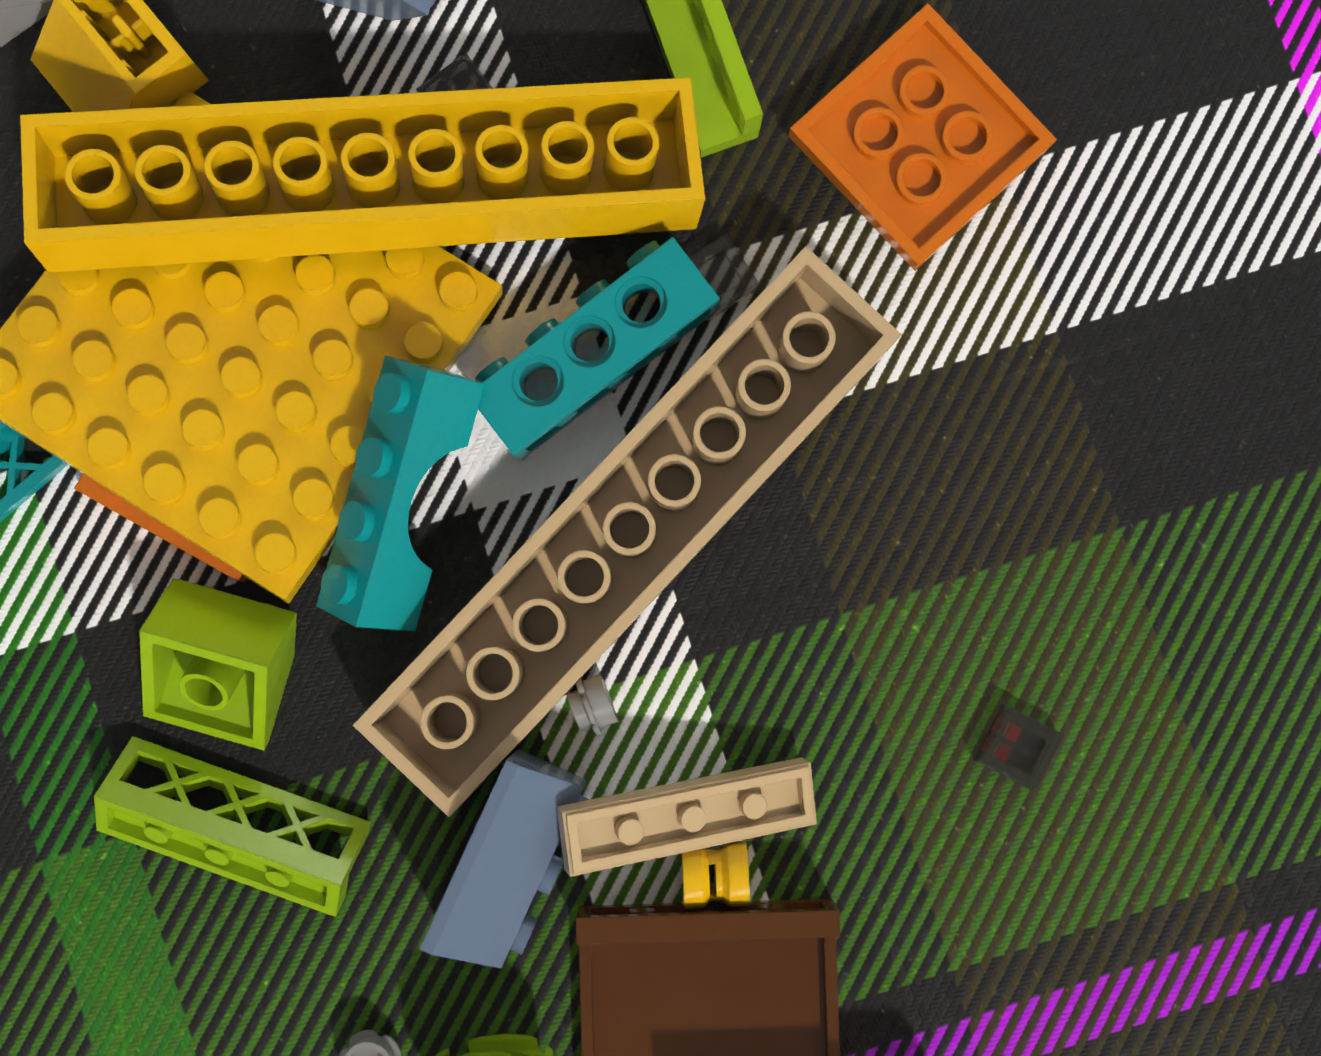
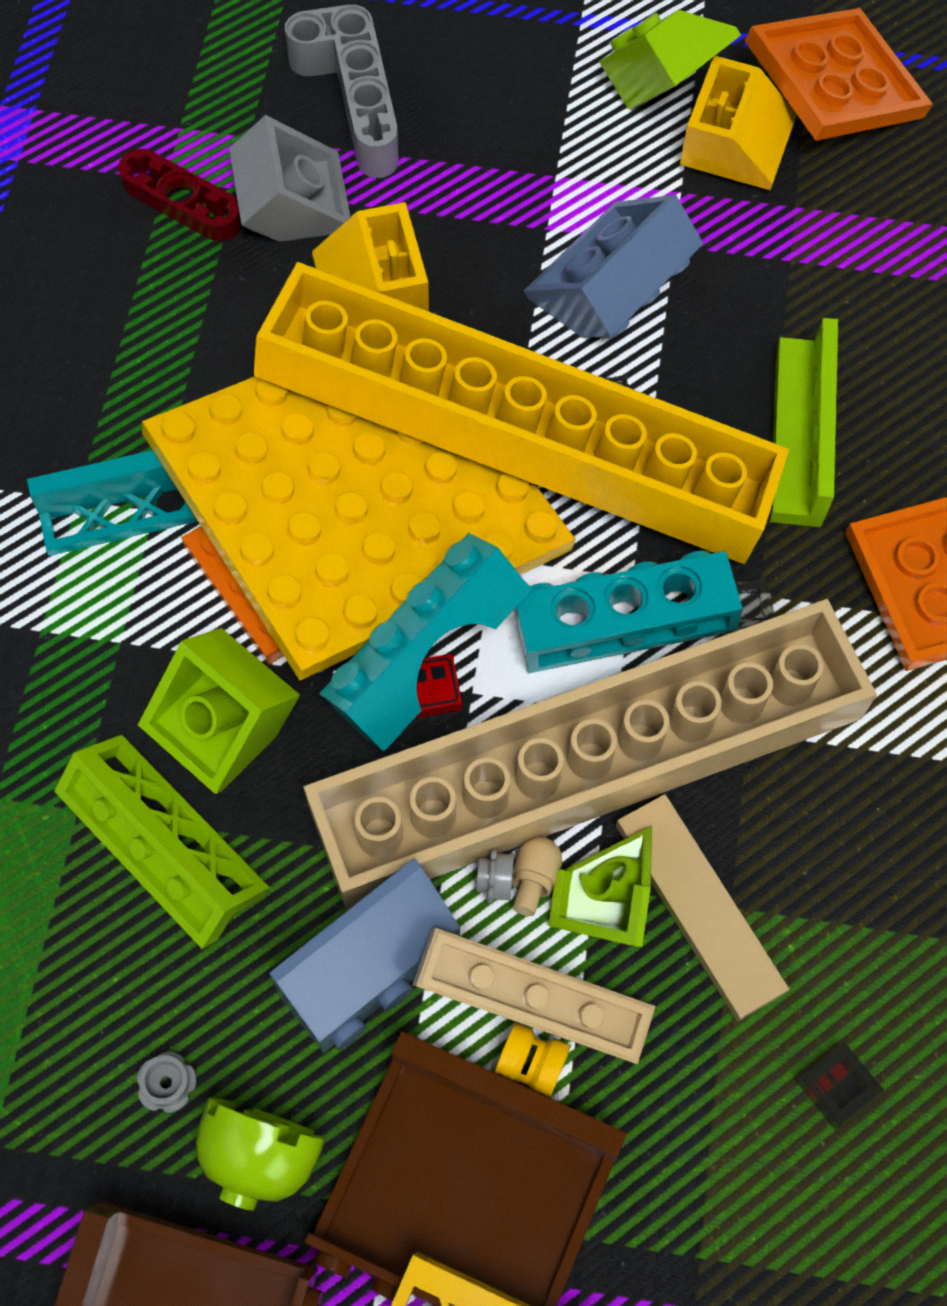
camera: 25 degrees right, 20 degrees down
(434, 526) = (438, 686): none -> red tile
(630, 678) = (535, 873): none -> tan cylinder
(712, 672) = (607, 892): none -> lime slope
(810, 632) = (705, 911): none -> tan tile

